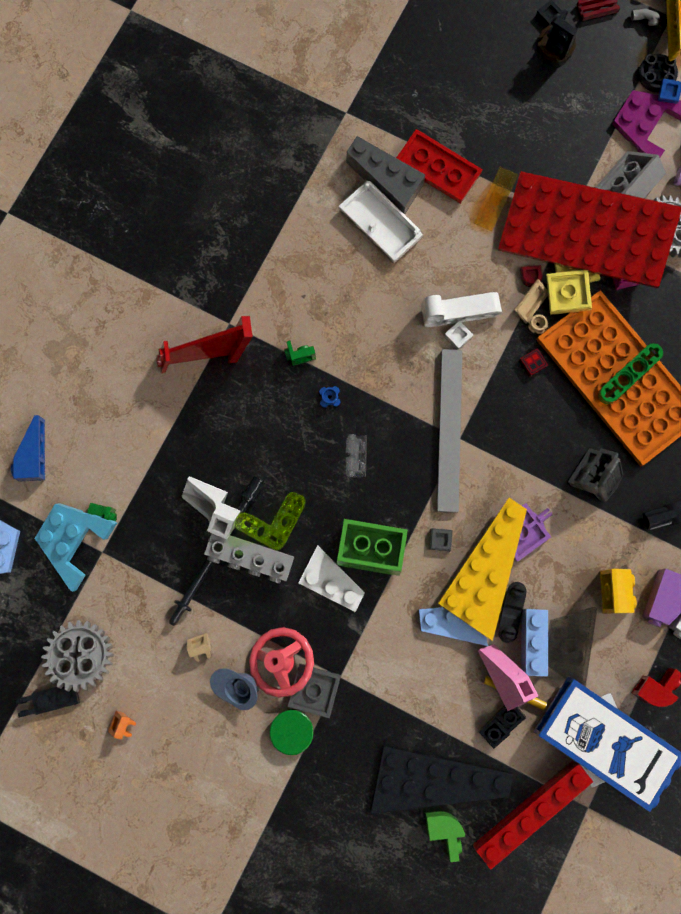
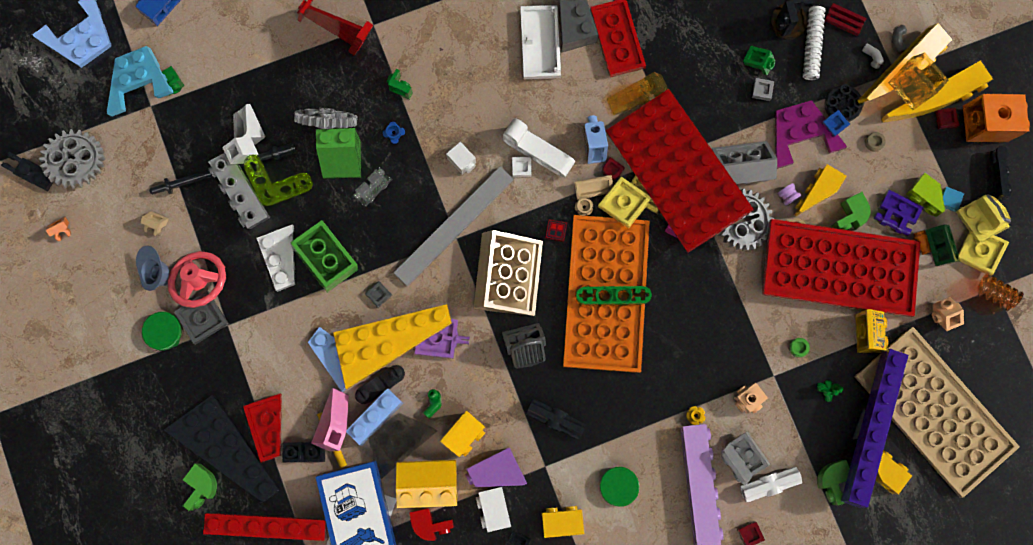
camera: 40 degrees right, 0 degrees up
(269, 431) = (325, 118): none -> light grey gear
(305, 451) = (339, 153): none -> bright green slope
(406, 369) = (461, 158): none -> white brick
(451, 731) = (265, 426): none -> red wing
(500, 262) = (595, 140): none -> light blue torso
(529, 430) = (508, 273): none -> tan slope
(564, 90) = (760, 59): none -> green bracket
(569, 587) = (434, 401): none -> green arm
(588, 112) = (762, 89): none -> light grey plate
(594, 44) = (814, 43): none -> white piece
(628, 658) = (426, 483): none -> yellow slope

